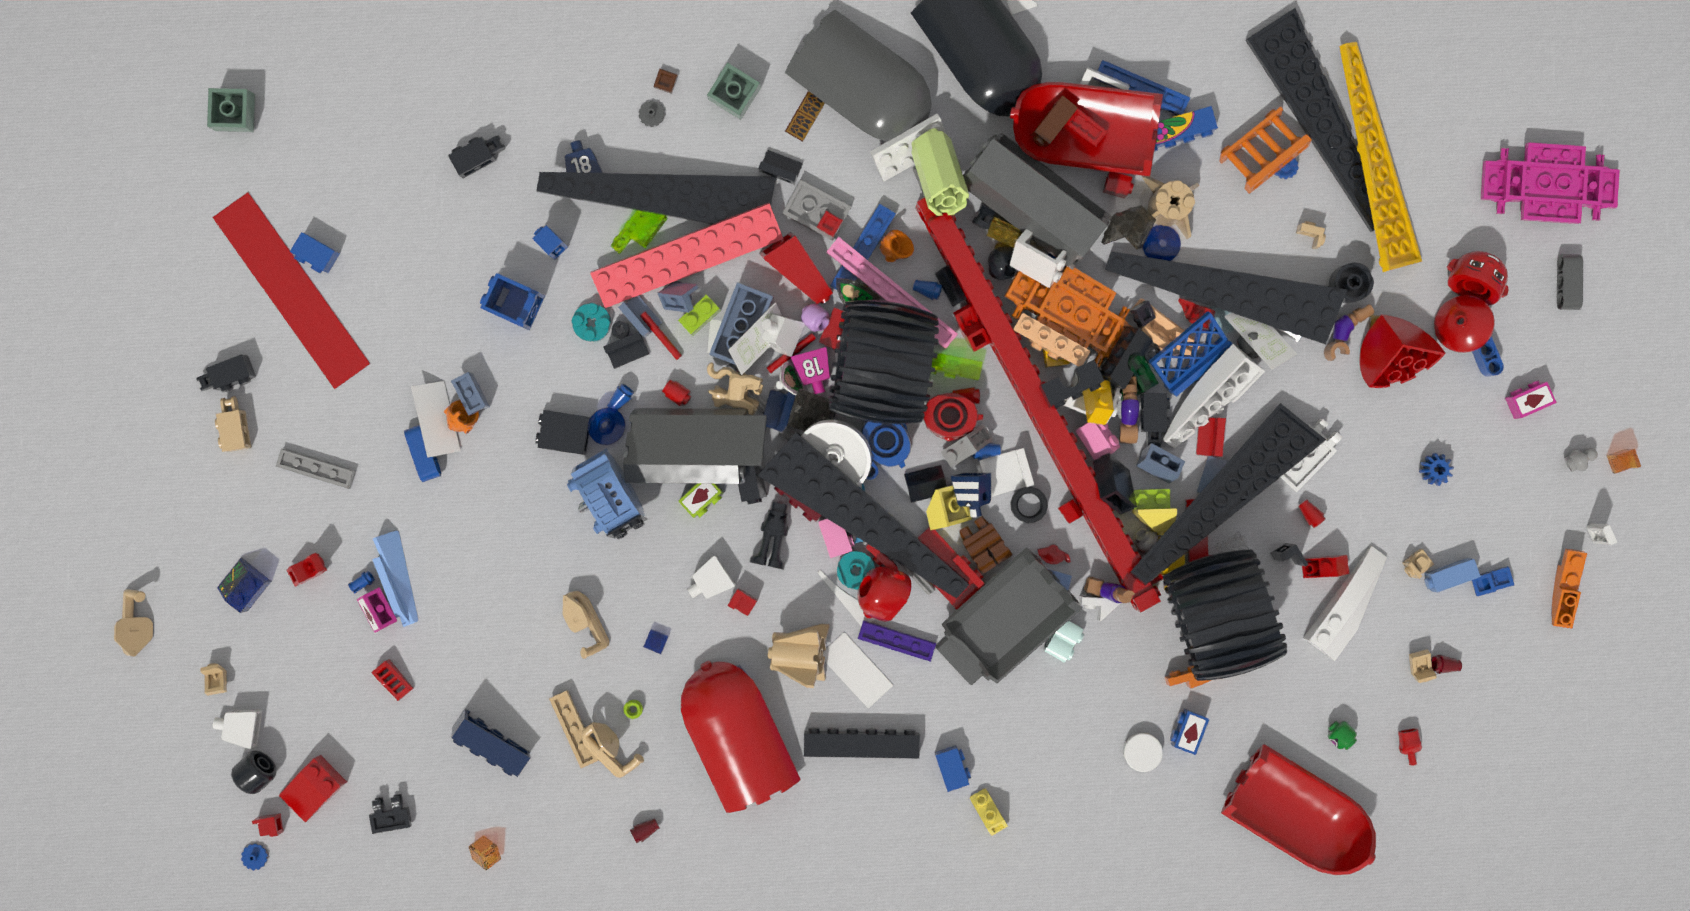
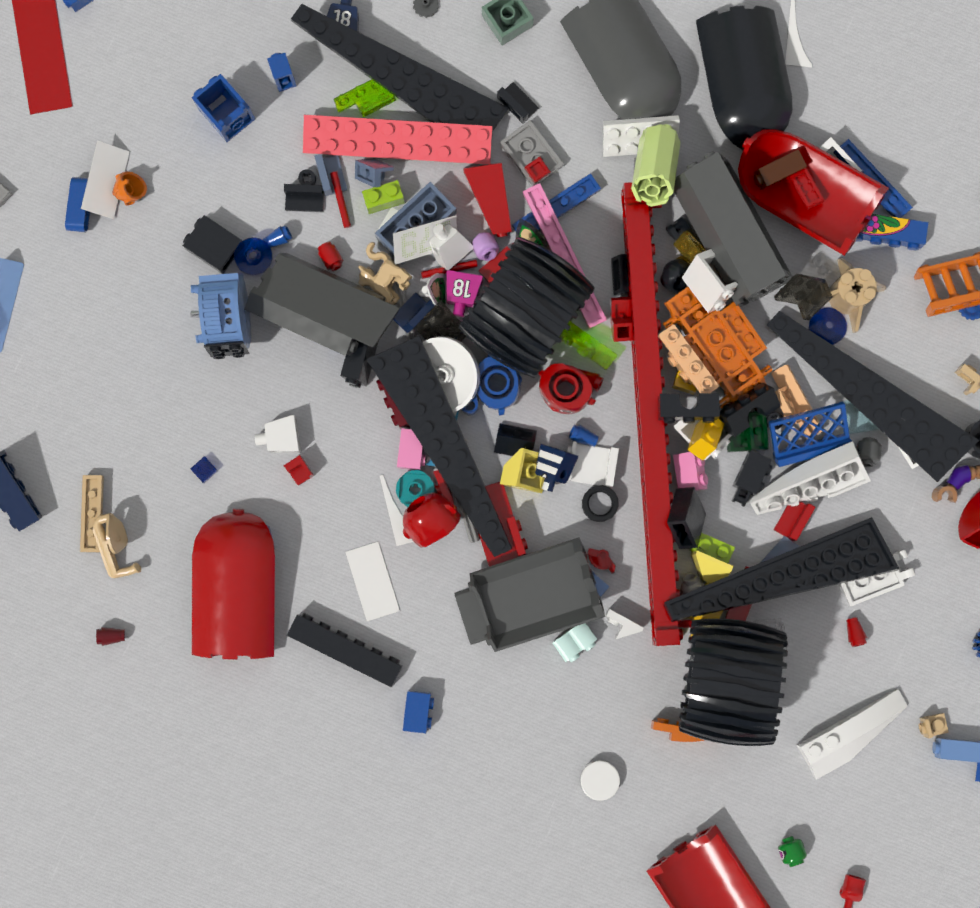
camera: 25 degrees right, 5 degrees down
(470, 393) = (146, 171): sand blue panel -> none
(581, 615) = (146, 413): tan piece -> none
(602, 322) = (293, 166): teal plate -> none
(633, 715) = (147, 521): lime plate -> none
(700, 497) = (306, 358): brick -> none
(773, 526) = (361, 416): black piece -> none
(800, 654) = (328, 539): tan brick -> none
(805, 116) = (560, 68): sticker -> none
(896, 246) = (587, 218): orange helmet -> none
(896, 640) = (422, 571): dark purple tile -> none
(928, 288) = (600, 269): blue cone -> none
(967, 445) = (568, 422): light grey bracket -> none
(984, 539) = (542, 515): reddish brown hips -> none
(988, 812) = (431, 769): light yellow bracket -> none
(1070, 511) = (635, 527): red tile -> none
(1110, 591) = (636, 614): medium nougat piece -> none
(1118, 185) = (812, 255): red brick -> none
(1129, 414) = (729, 462): piece -> none
(1143, 313) = (782, 378): black tile -> none
(1160, 463) = (737, 521): sand blue brick -> none
(1189, 731) = (651, 780): brick -> none
(1194, 312) = (829, 397): red slope -> none
(1270, 343) = (886, 457): white sticker -> none
(1289, 550) = (822, 657): black panel -> none
(1326, 566) = (846, 687): red slope -> none
(1421, 666) = (895, 822): tan bracket -> none
(1445, 664) = (916, 830): dark red cone -> none

